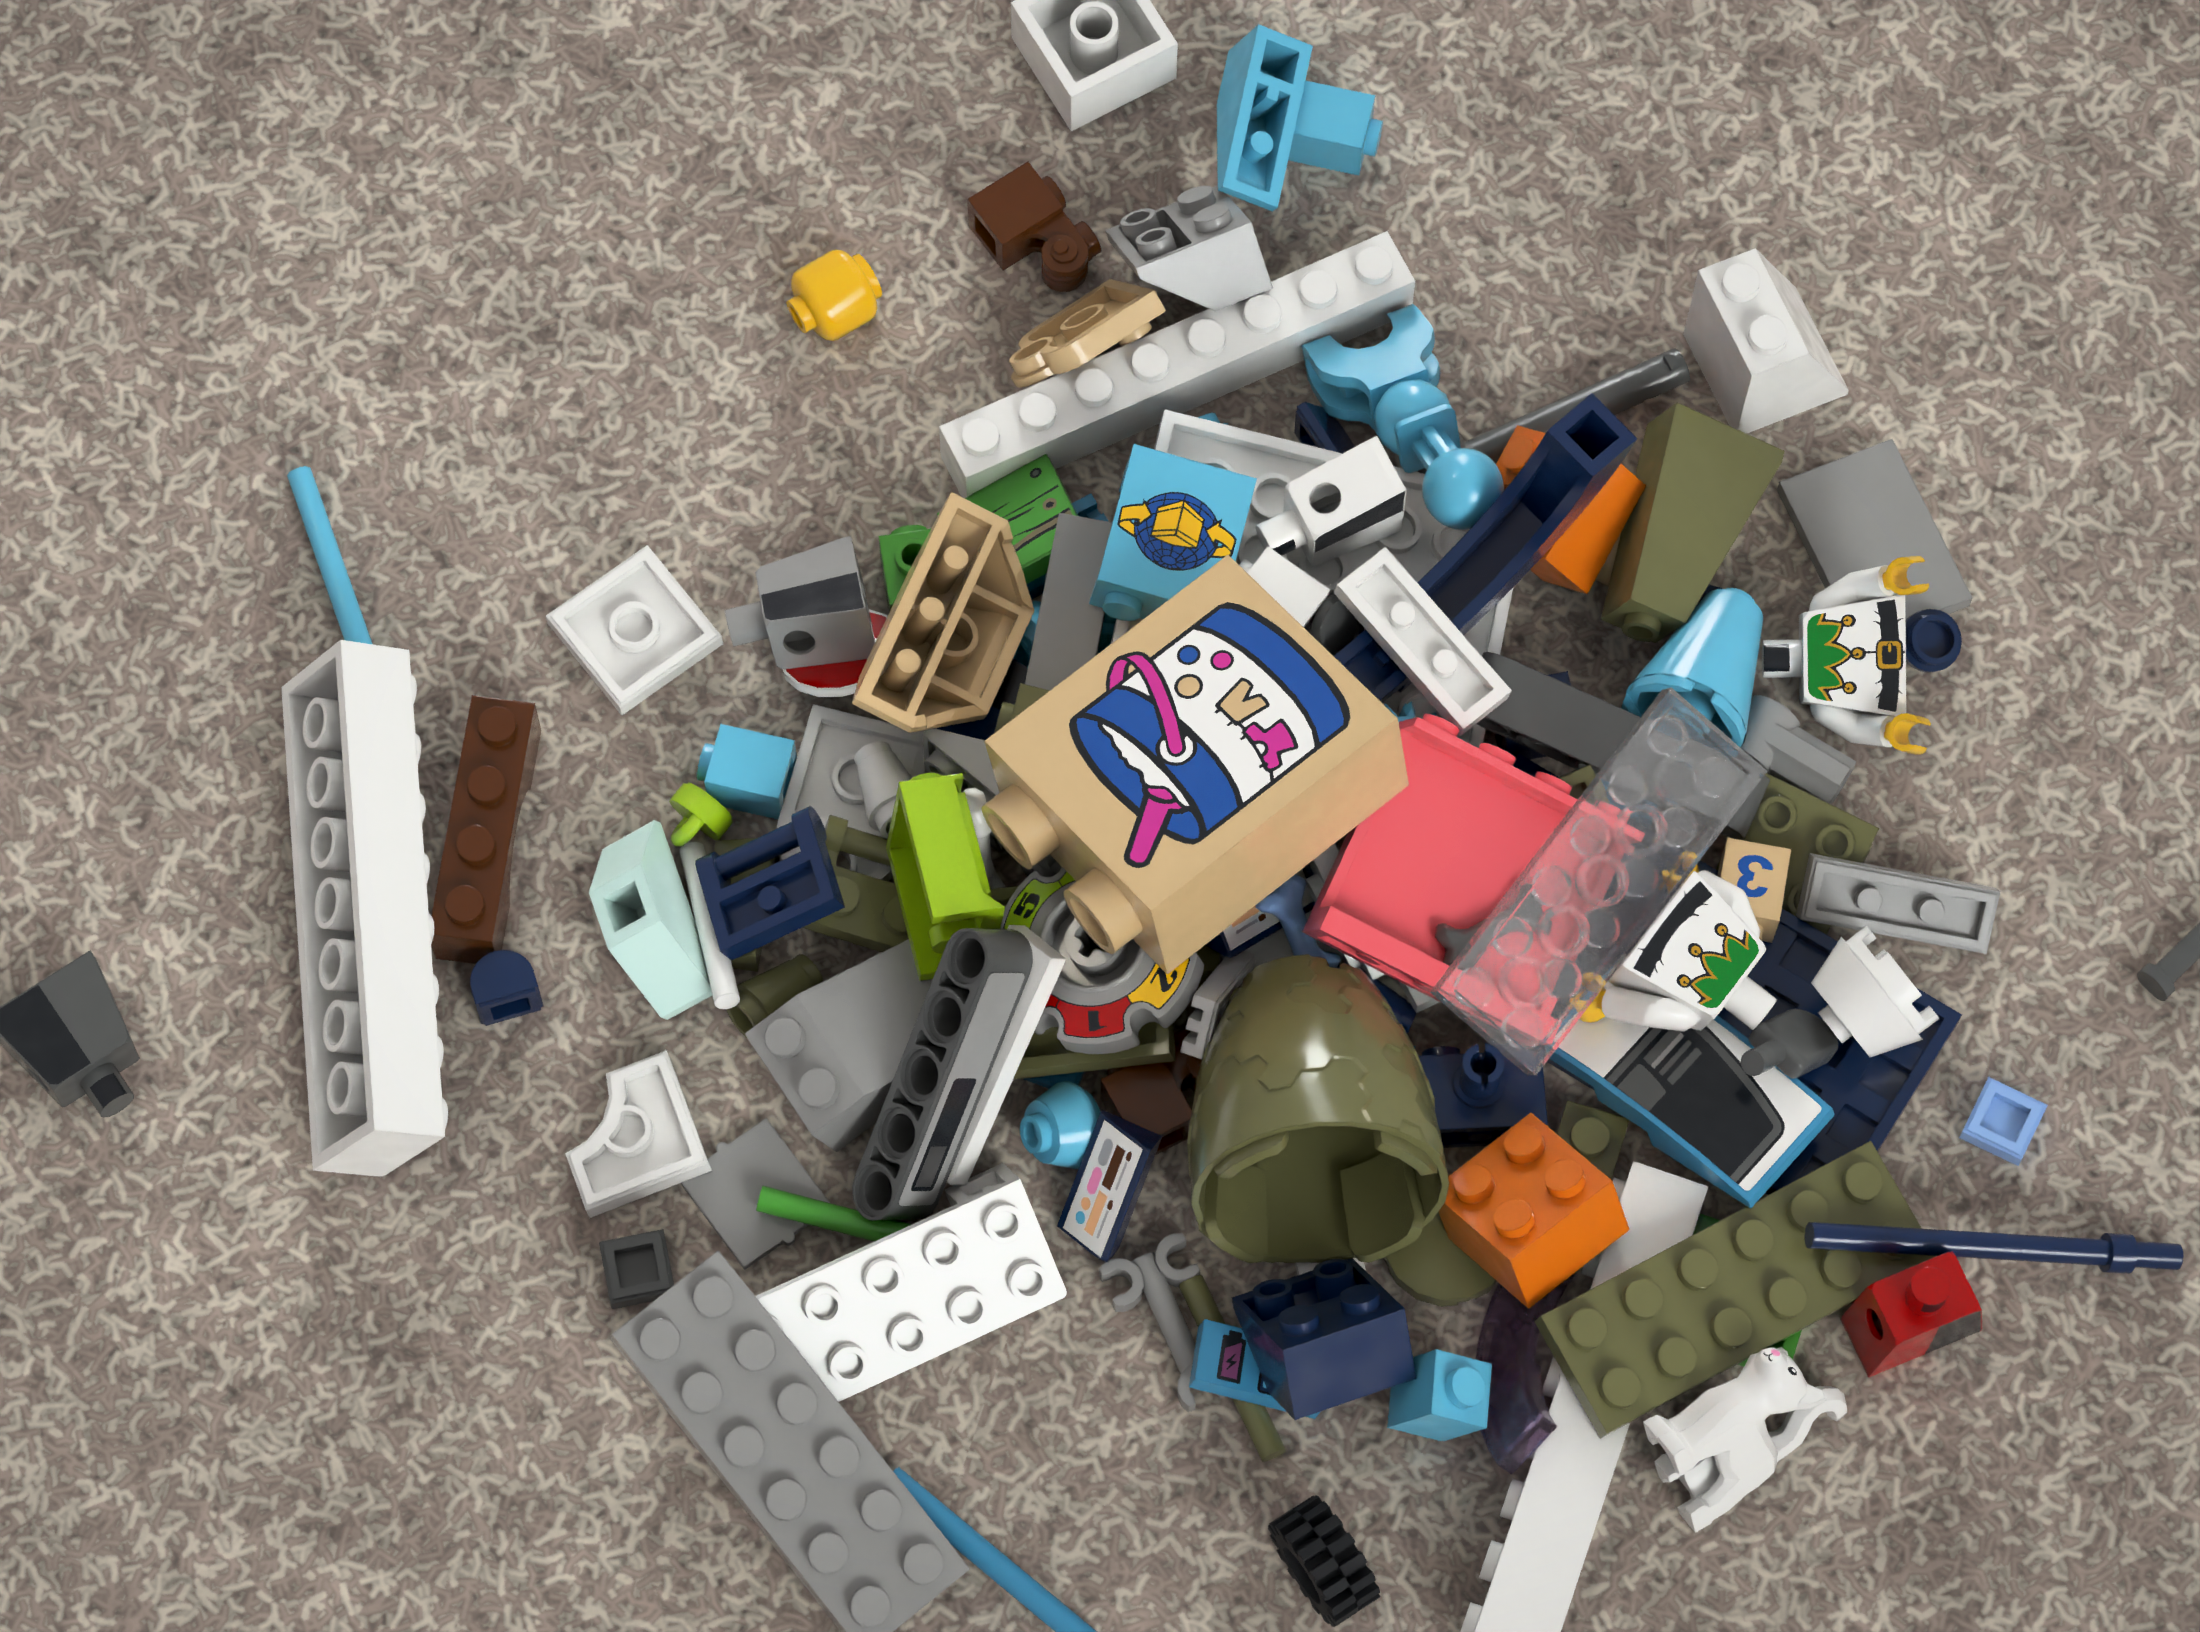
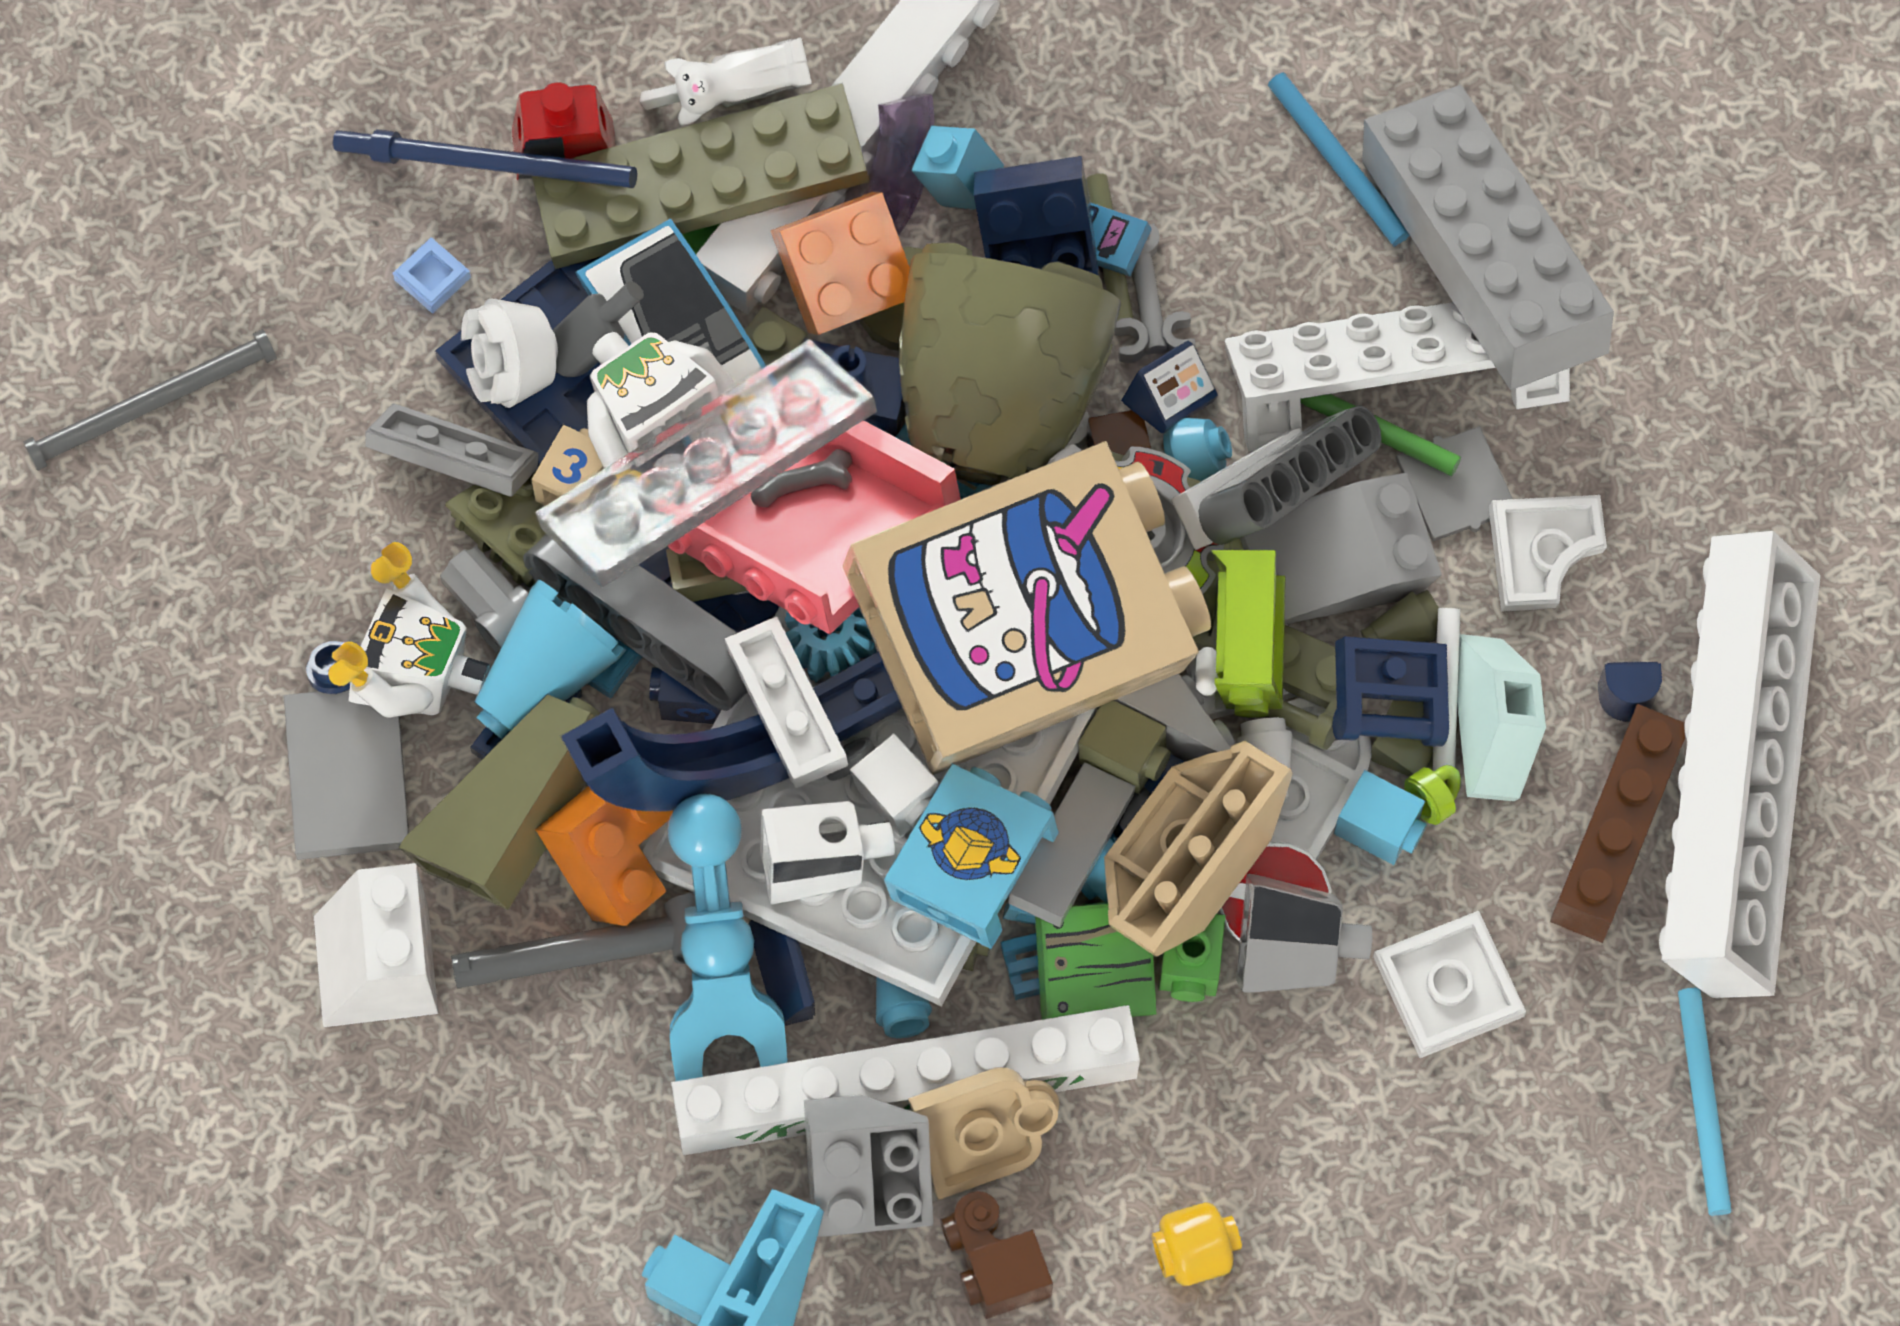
camera: 165 degrees left, 0 degrees up
(636, 1268) = (1566, 446): dark grey tile -> none
(1324, 1560) = (1087, 69): black tyre -> none

